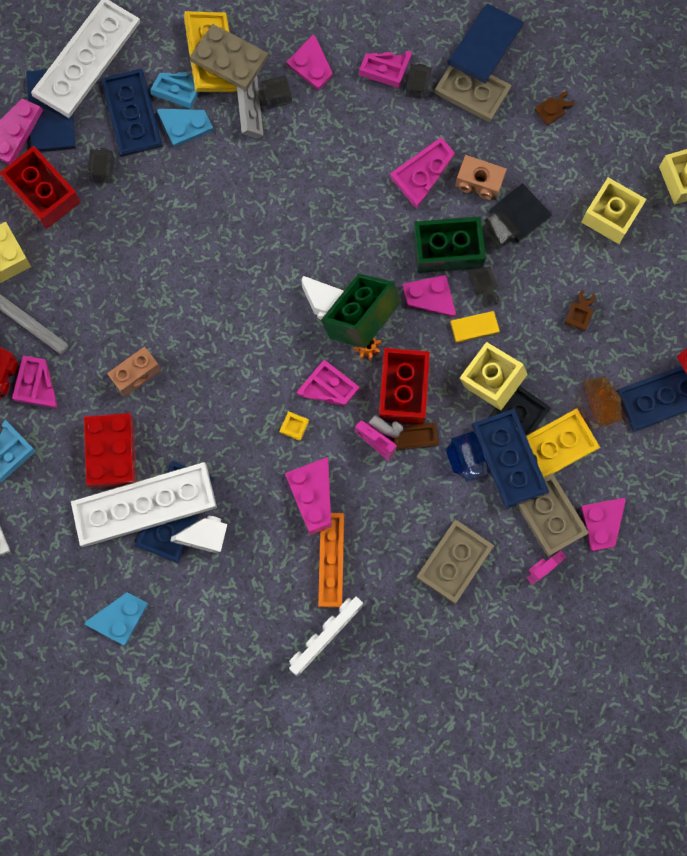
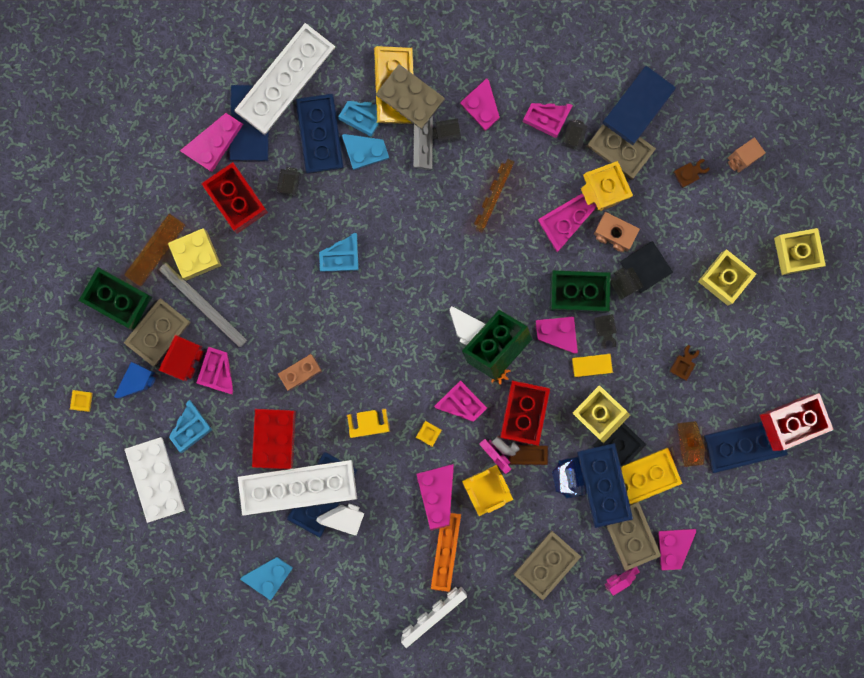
camera: 10 degrees right, 10 degrees up
(169, 239) = (340, 256): none -> dark azure wing
(221, 419) = (368, 424): none -> yellow panel
(339, 146) = (496, 187): none -> clear orange plate
(372, 482) = (487, 490): none -> yellow panel
(461, 127) = (606, 186): none -> yellow panel
(613, 78) = (745, 155): none -> nougat brick

